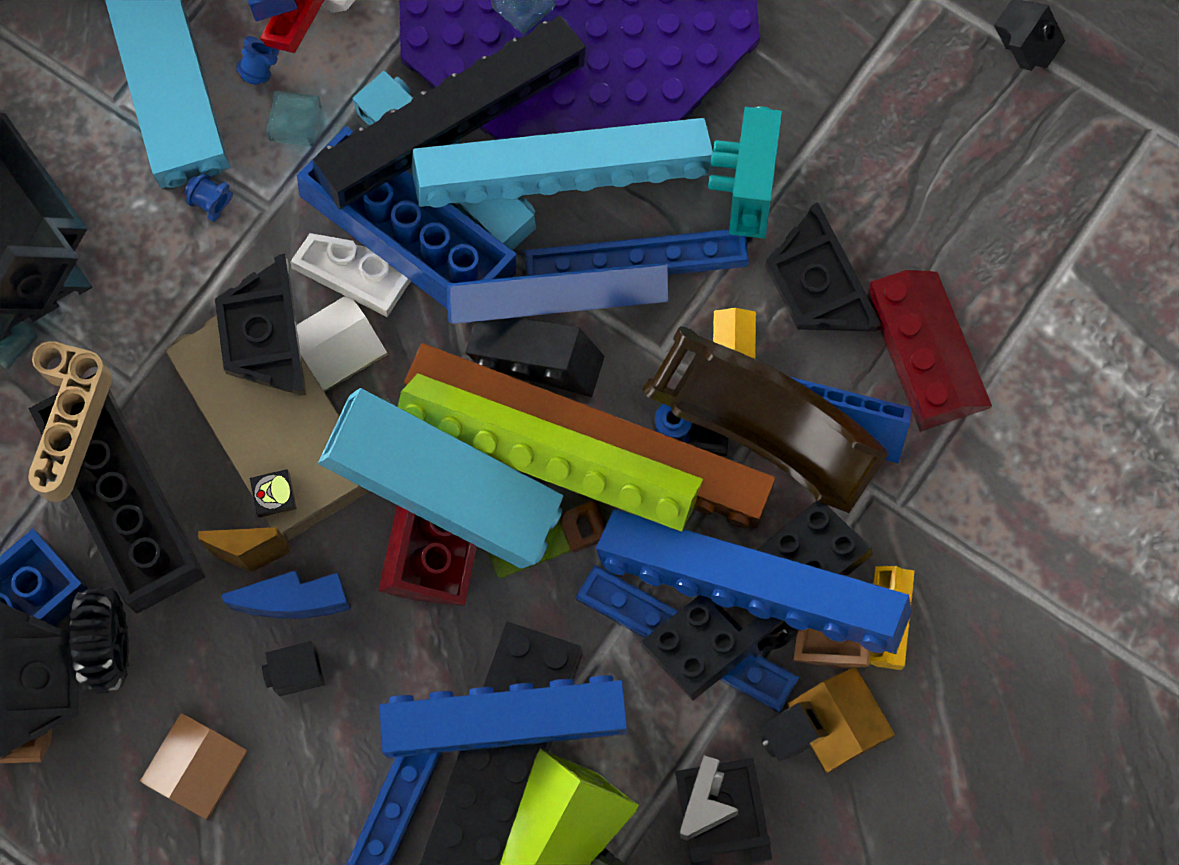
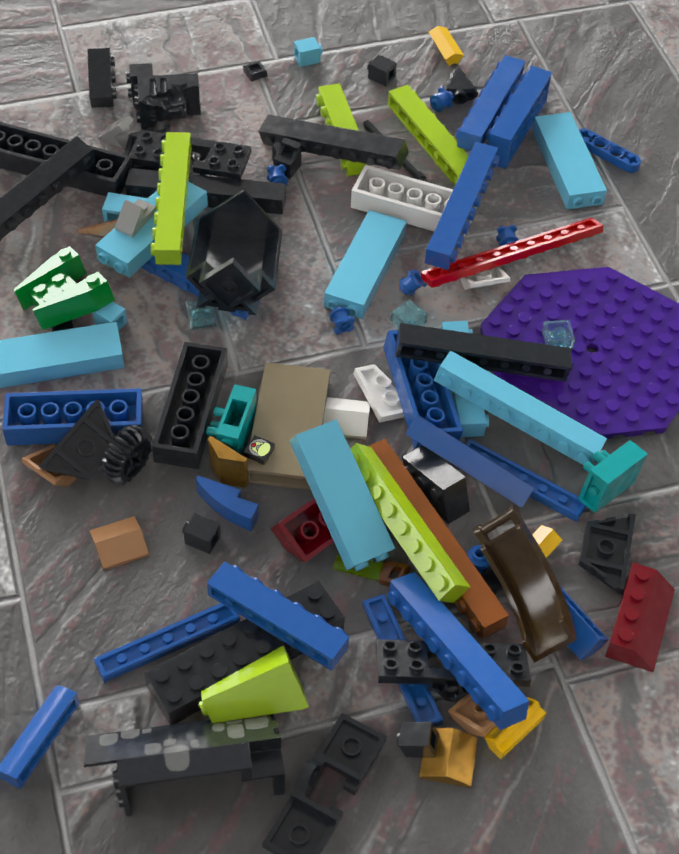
camera: 30 degrees right, 20 degrees down
(60, 422) = (197, 356): tan beam -> none
(205, 475) = (236, 419): none -> teal piece
(261, 330) = (315, 381): black wing -> none
(701, 812) = (338, 735): light grey slope -> none

